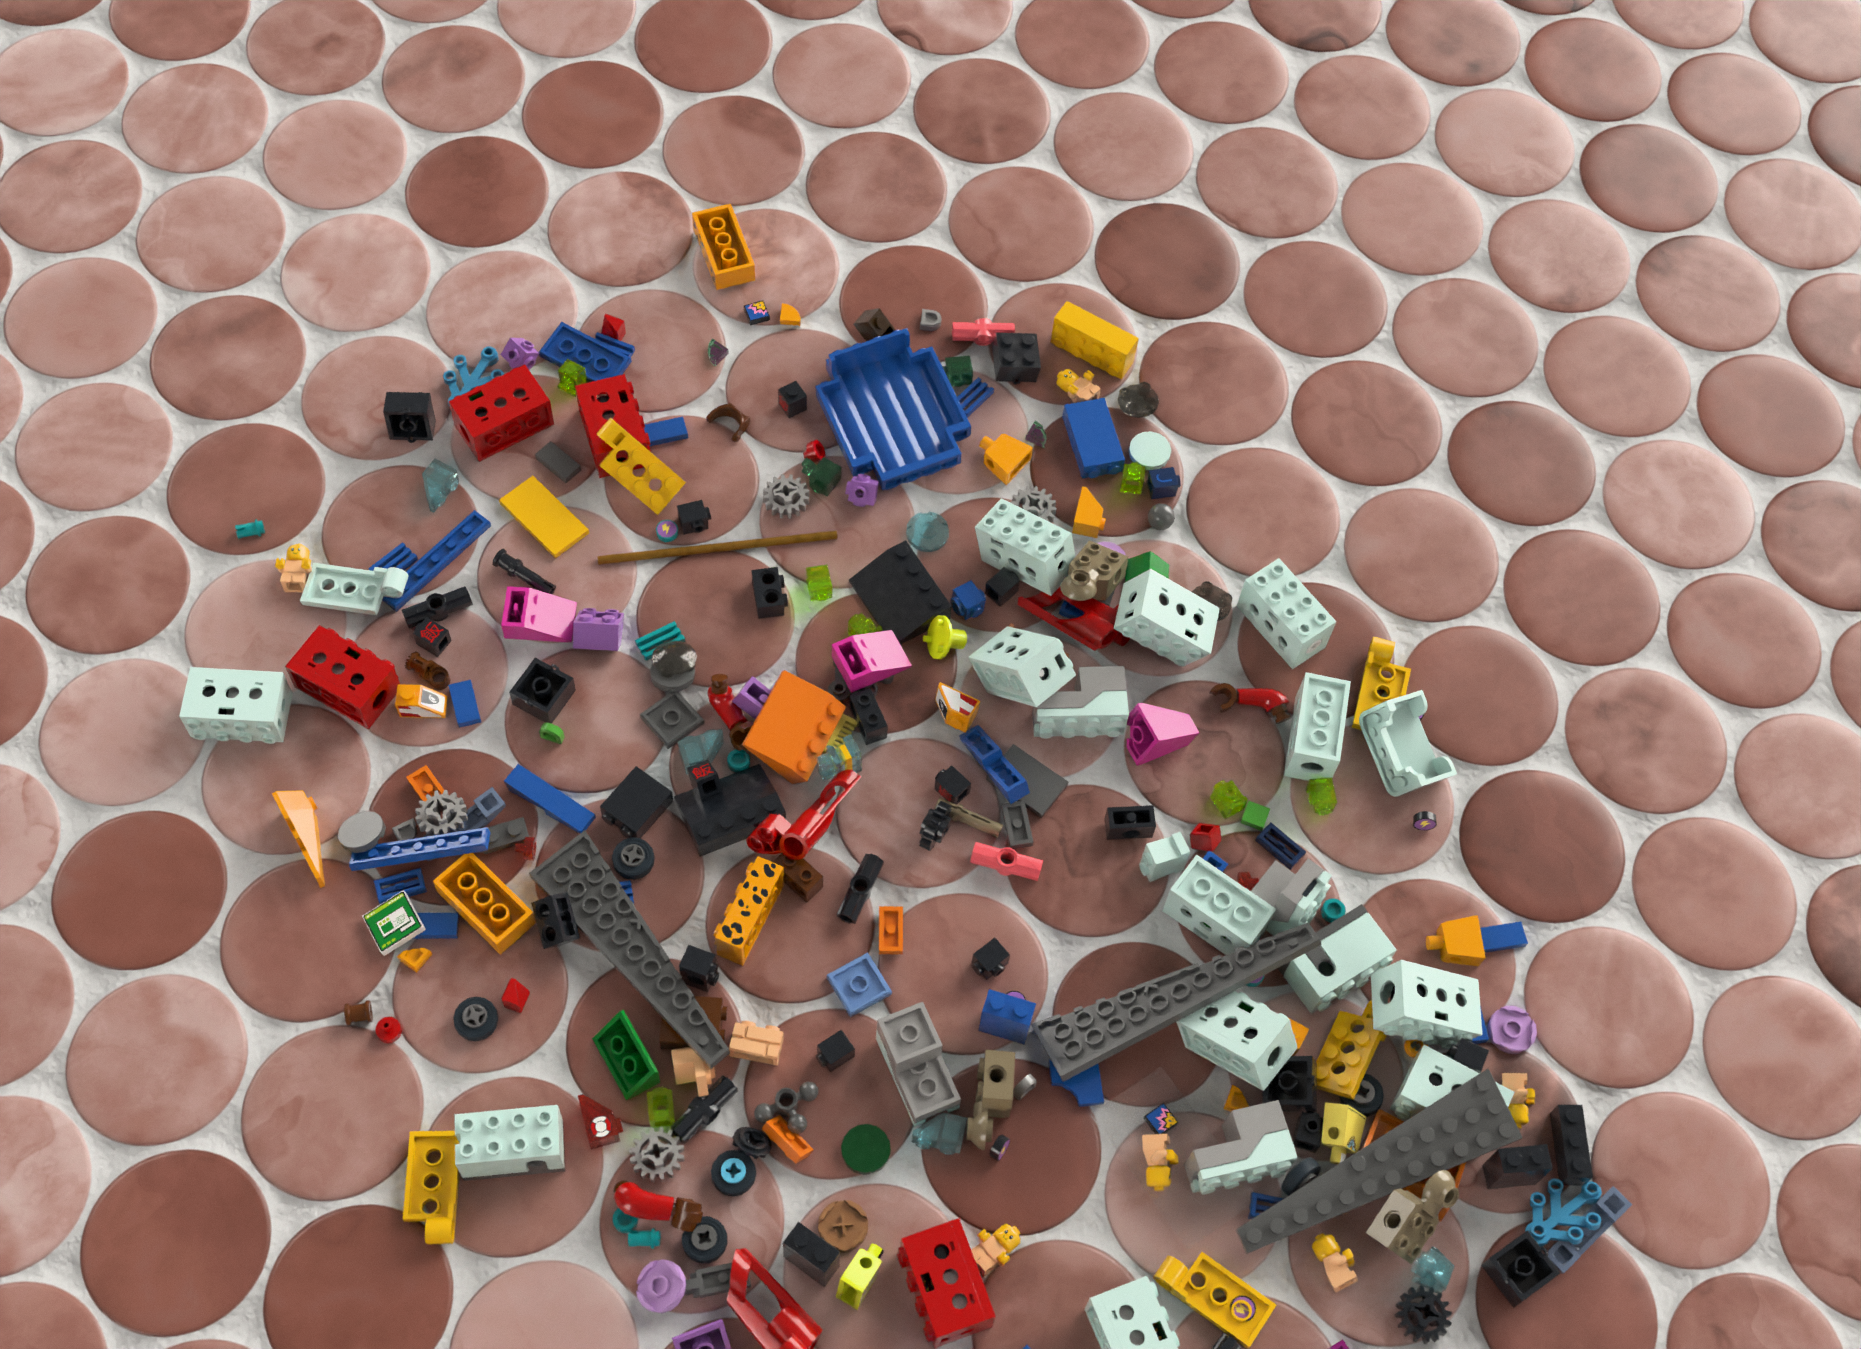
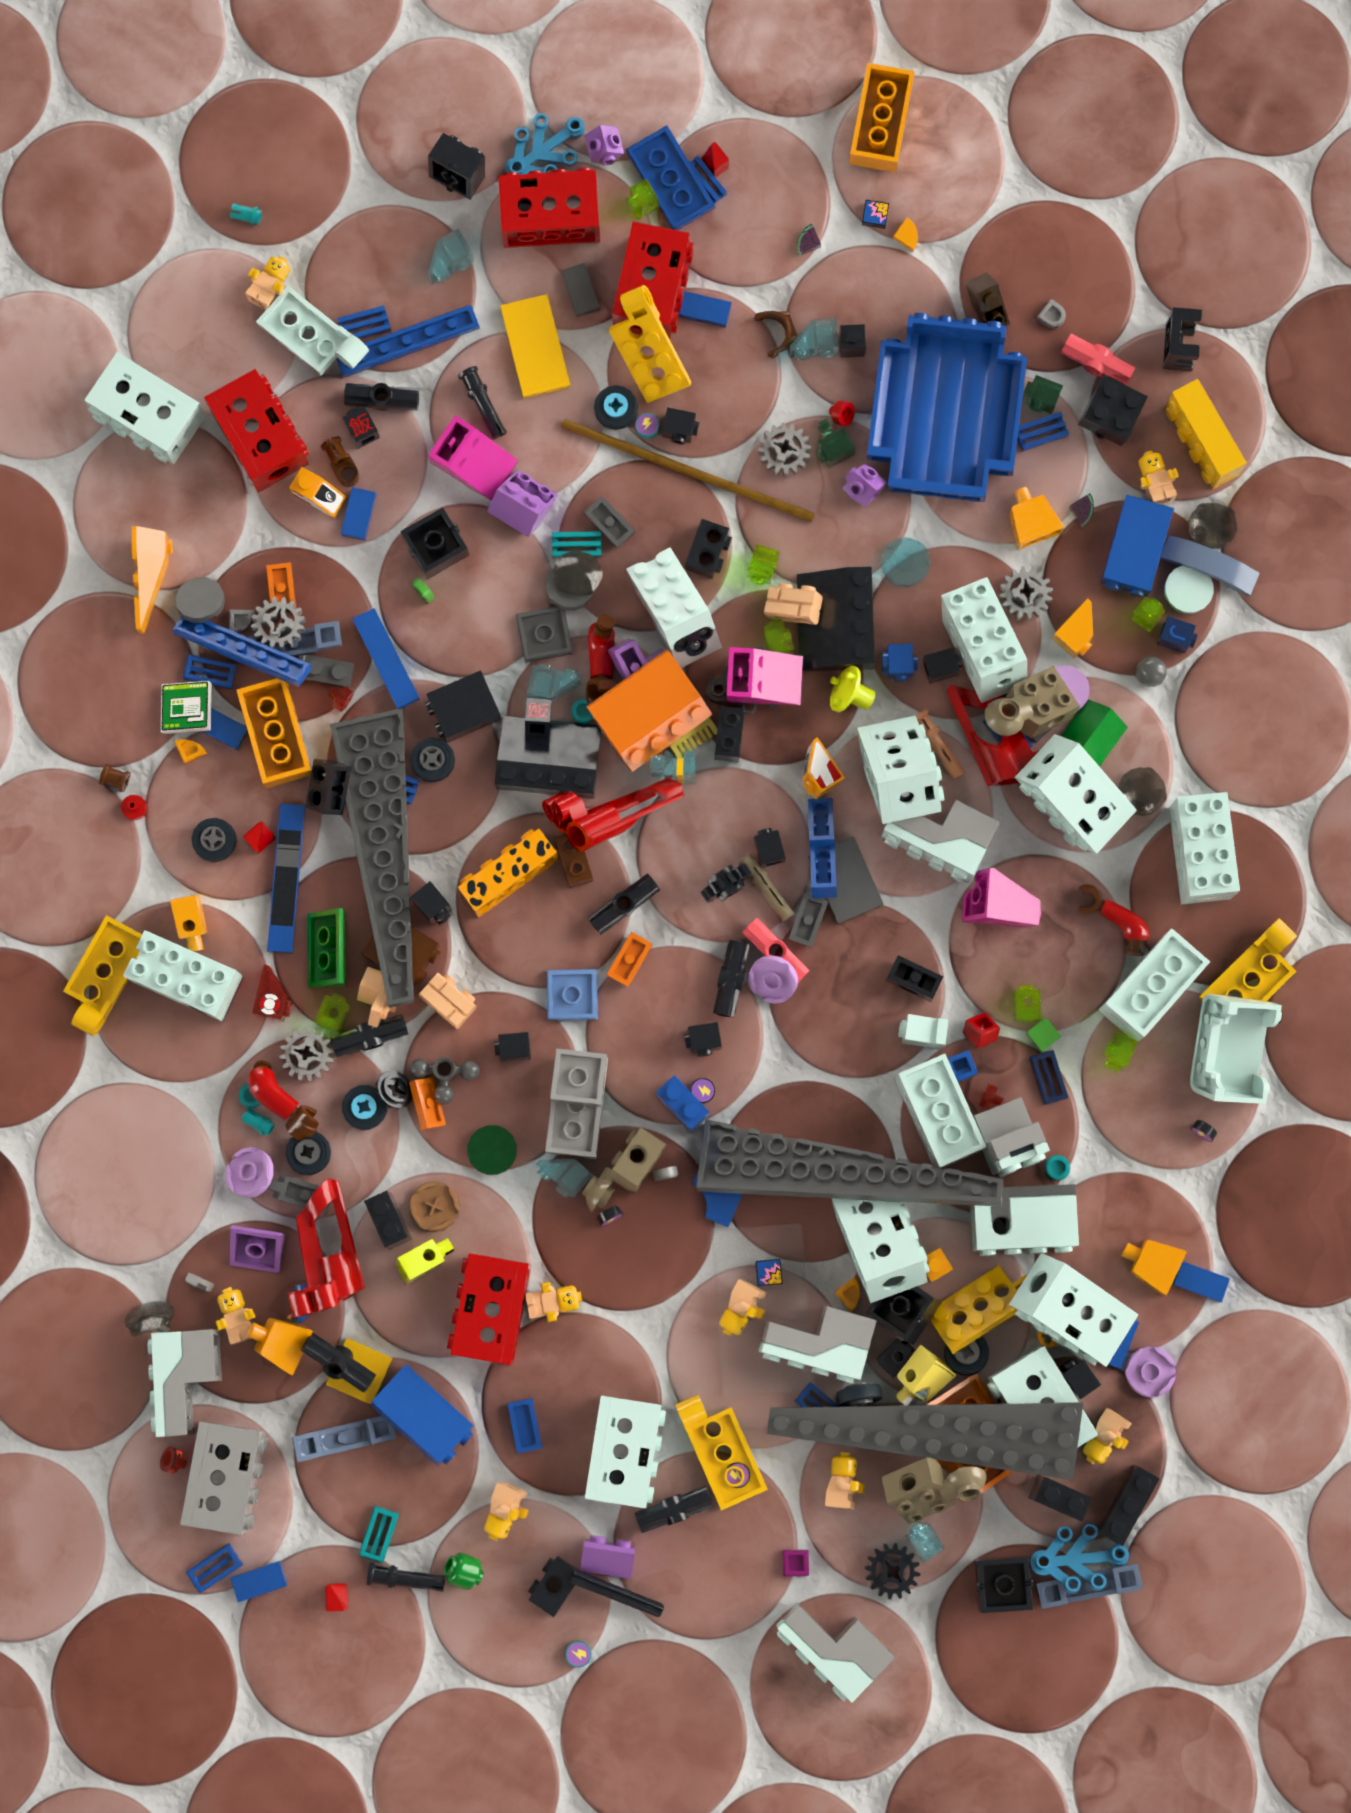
camera: 35 degrees right, 20 degrees up
(484, 1085) = (189, 909): none -> light orange torso
(558, 1019) = (286, 878): none -> tile
(632, 536) = (615, 416): none -> black wheel
(678, 611) = (609, 522): none -> dark grey plate
(764, 411) = (817, 338): none -> clear light blue slope
(771, 639) = (675, 608): none -> light aqua piece
(861, 597) = (793, 604): none -> light nougat brick
(983, 901) = (731, 978): none -> black piece
(1018, 881) = (773, 979): none -> lavender tile
(1031, 291) = (1176, 354): none -> black panel
(1155, 424) = (1210, 563): none -> sand blue slope

